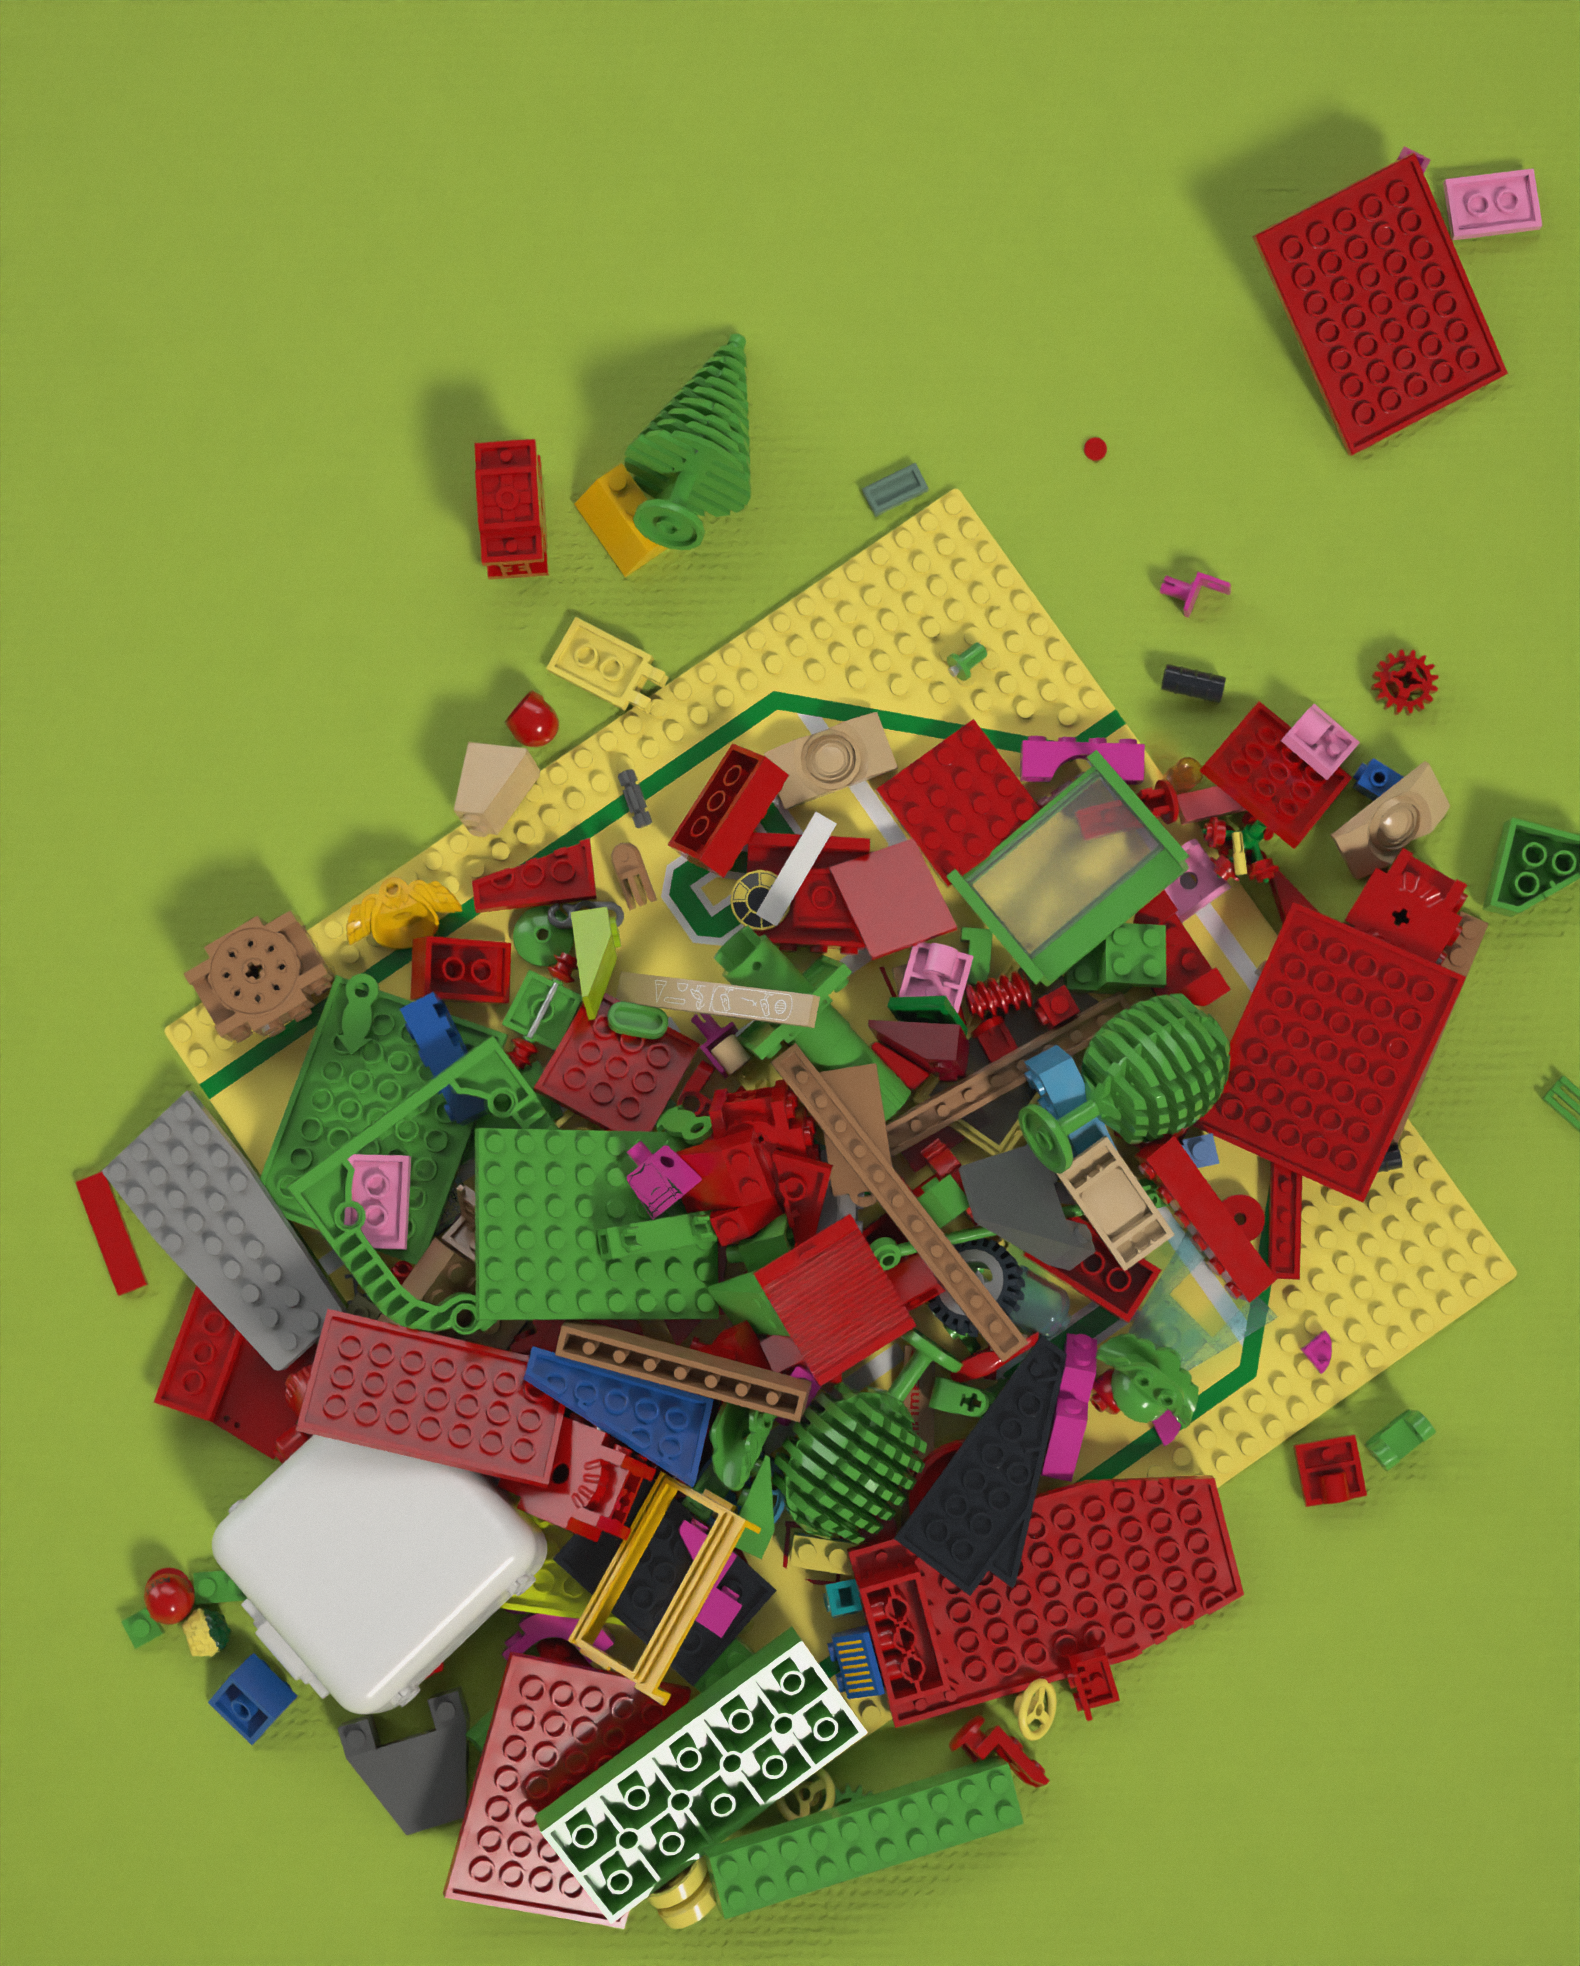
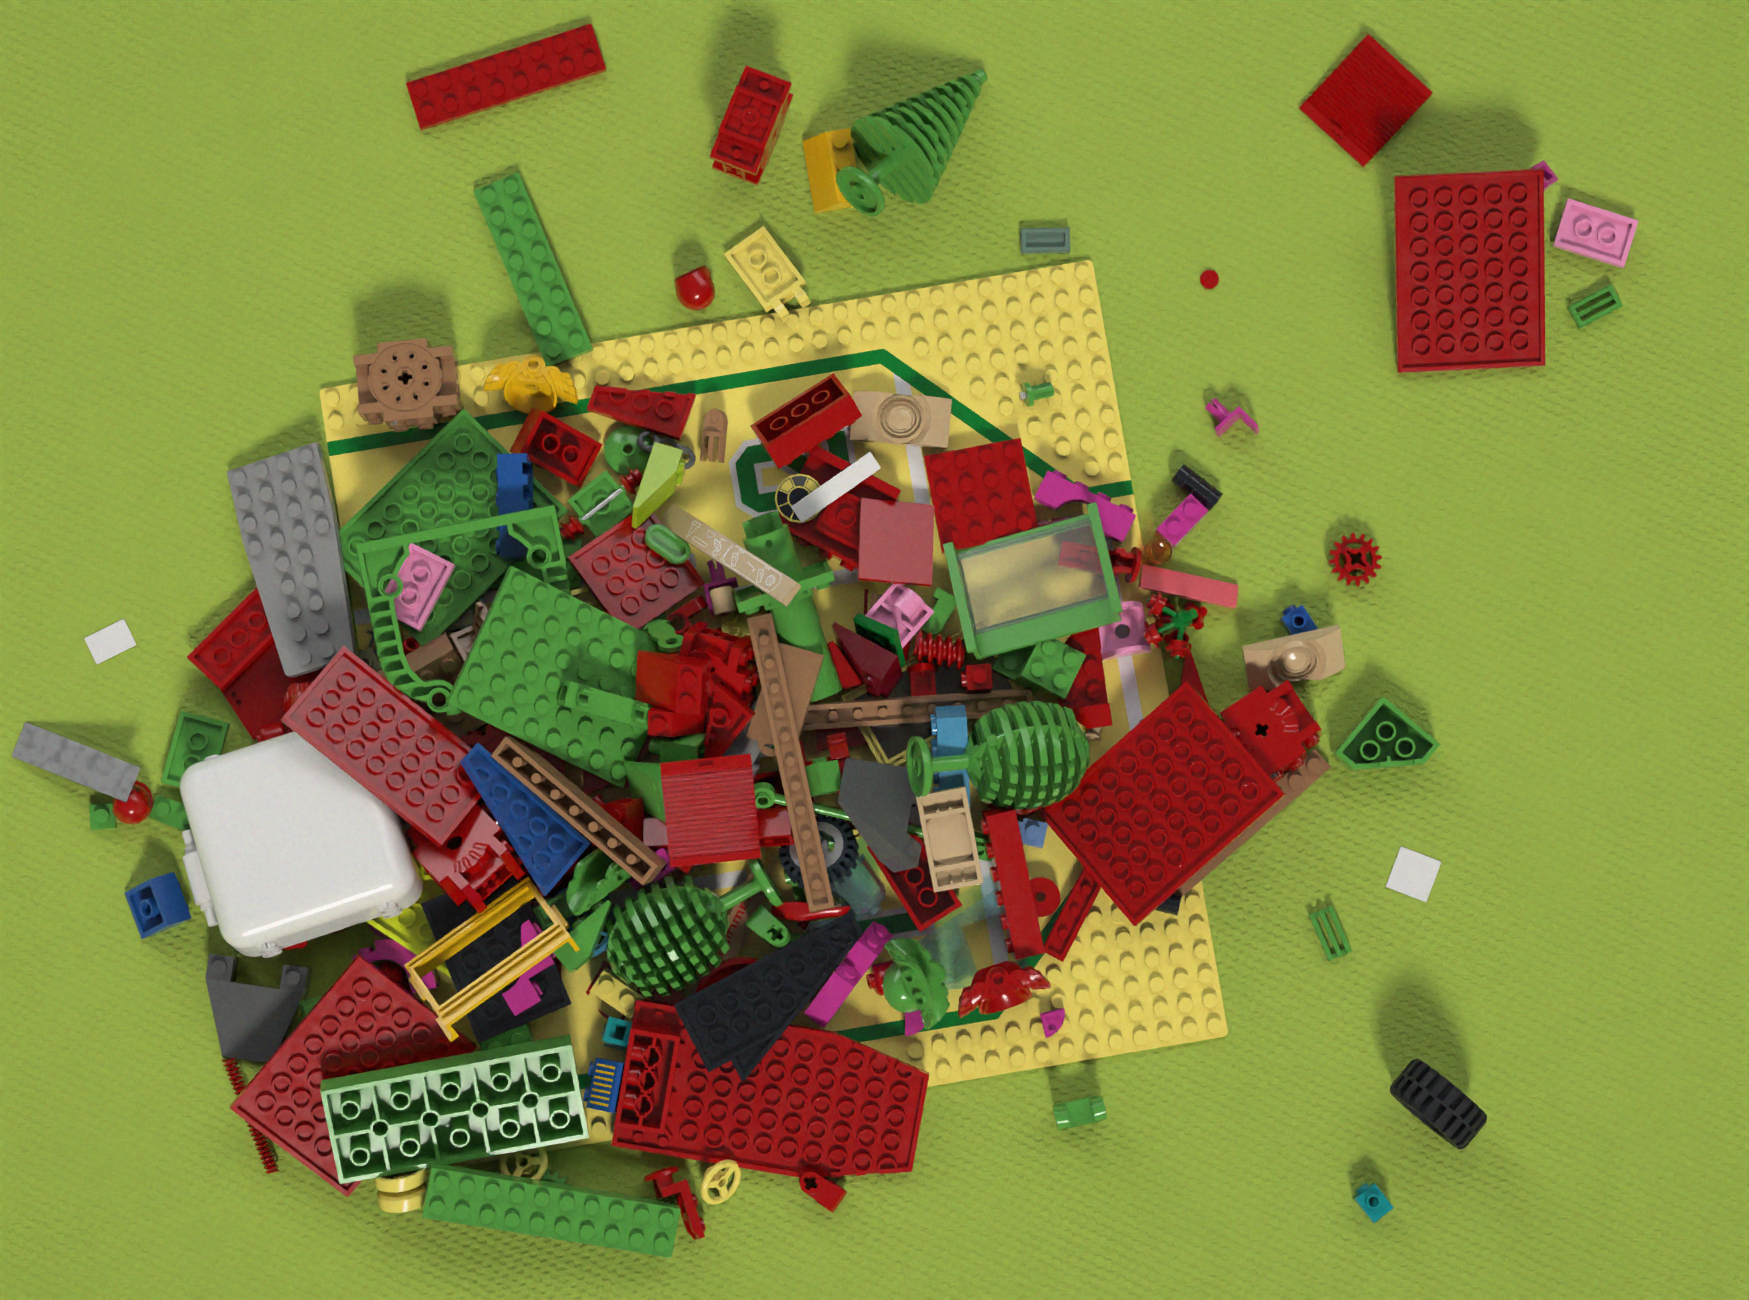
camera: 30 degrees right, 0 degrees up
(58, 1424) = (110, 641): none -> white sticker
(83, 1581) = (76, 762): none -> flat silver sticker
(111, 1233) = (213, 521): red tile -> none
(206, 1495) = (193, 742): none -> bright green plate
(206, 1632) = (147, 841): light yellow piece -> none
(209, 584) = (506, 77): none -> red plate
(341, 785) = (533, 270): none -> bright green plate
(358, 1014) = (466, 444): bright green brick -> none
(432, 1851) = (265, 1157): none -> red piece
(493, 786) = (642, 323): tan slope -> none
(634, 798) = (743, 380): dark grey axle -> none
(659, 1178) = (626, 664): dark pink torso -> none
(1093, 1679) = (771, 1180): red bracket -> none
(1158, 1664) = (825, 1193): none -> red piece
(1172, 175) = (1365, 100): none -> red door
(1195, 727) = (1181, 521): none -> dark pink brick
(1213, 1009) = (1094, 734): none -> tan piece
(1239, 854) = (1165, 628): light yellow pin -> none
(1246, 1341) = (1000, 988): none -> red piece
(1271, 778) = (1223, 582): red plate -> none
(1320, 741) = (1269, 574): bright pink plate -> none
(1330, 1470) = (1018, 1112): red plate -> none
(1515, 303) = (1576, 316): none -> bright green tile

